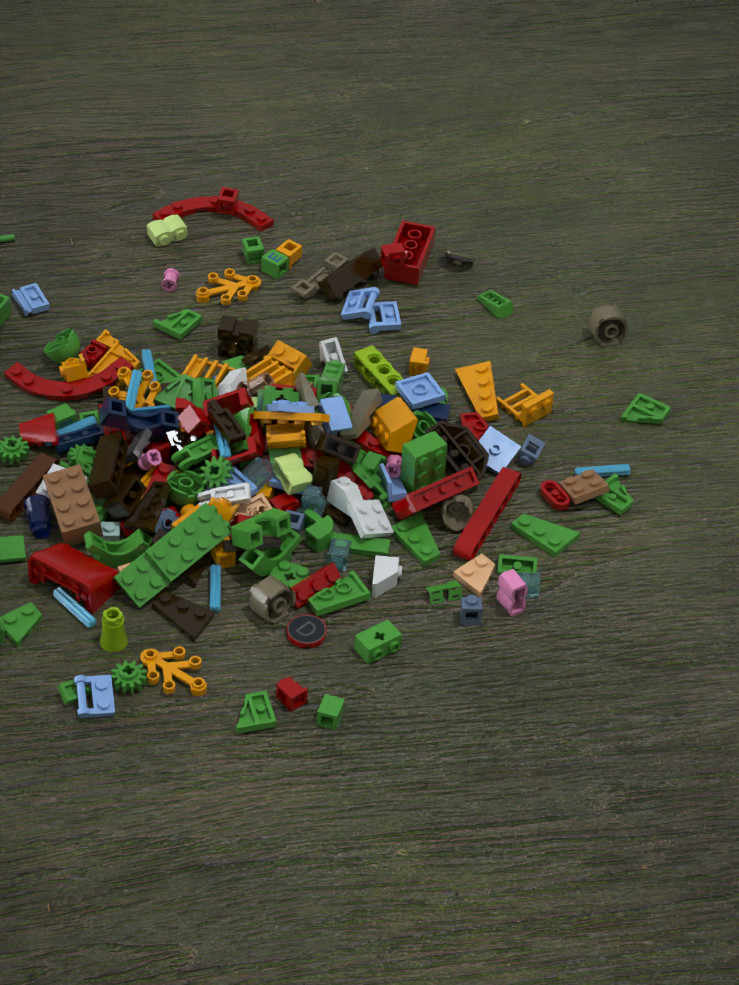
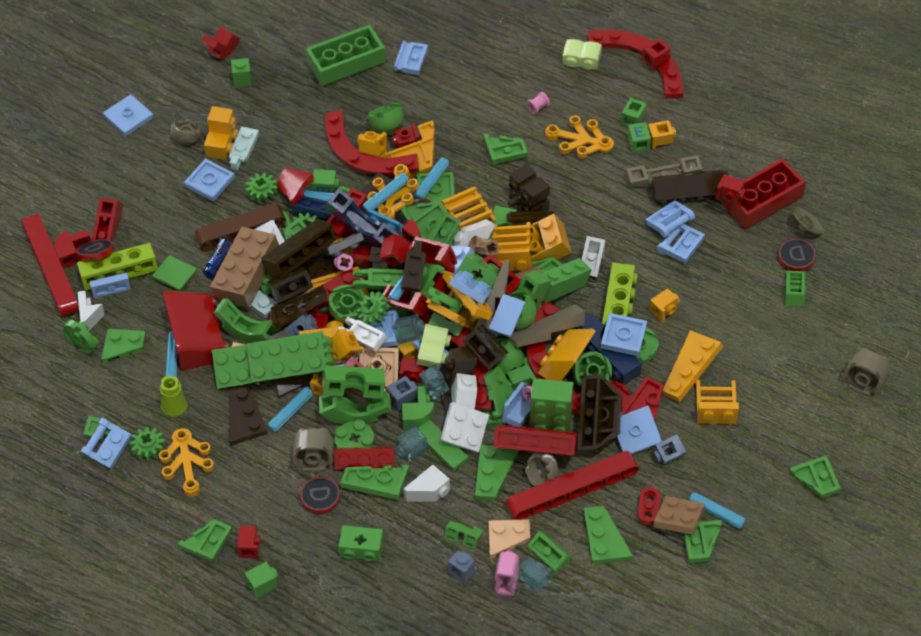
camera: 45 degrees right, 10 degrees up
(280, 427) = (439, 297): none -> bright green plate
(473, 282) = (797, 255): none -> black tile

